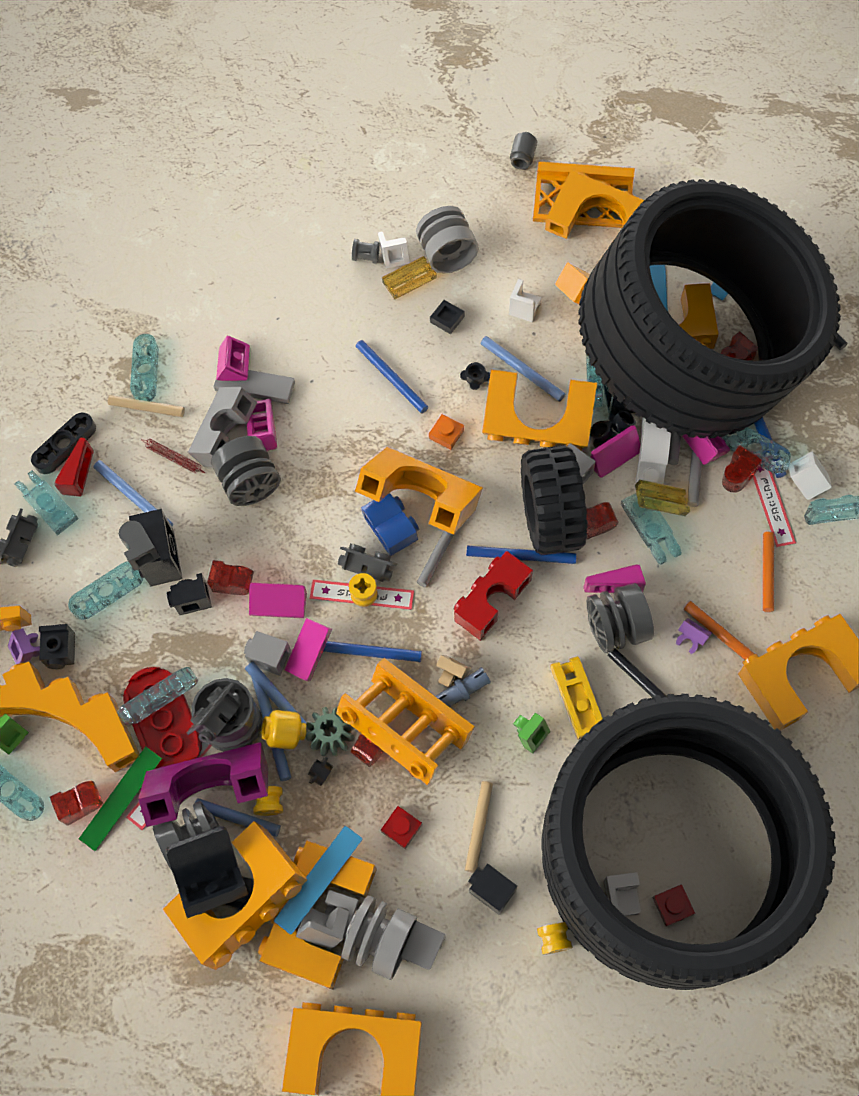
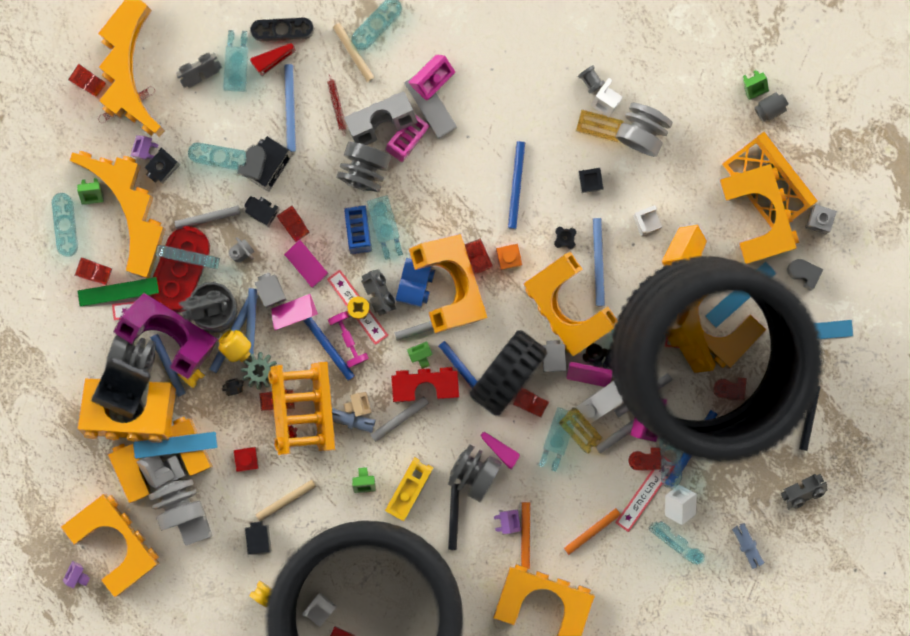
camera: 45 degrees right, 20 degrees up
(145, 650) = (207, 217): none -> light grey bar
(205, 640) = (241, 251): none -> light grey hinge
(308, 541) = (358, 247): none -> blue slope
(314, 505) = (384, 224): none -> clear light blue hinge
(355, 615) = (339, 318): none -> dark pink wheel
(423, 450) = (478, 256): none -> clear red leg
(459, 574) = (420, 353): none -> bright green tile
(494, 147) = (755, 85): none -> bright green tile
(501, 648) = (399, 419): none -> light grey bar
(650, 179) = (821, 219): none -> light grey brick

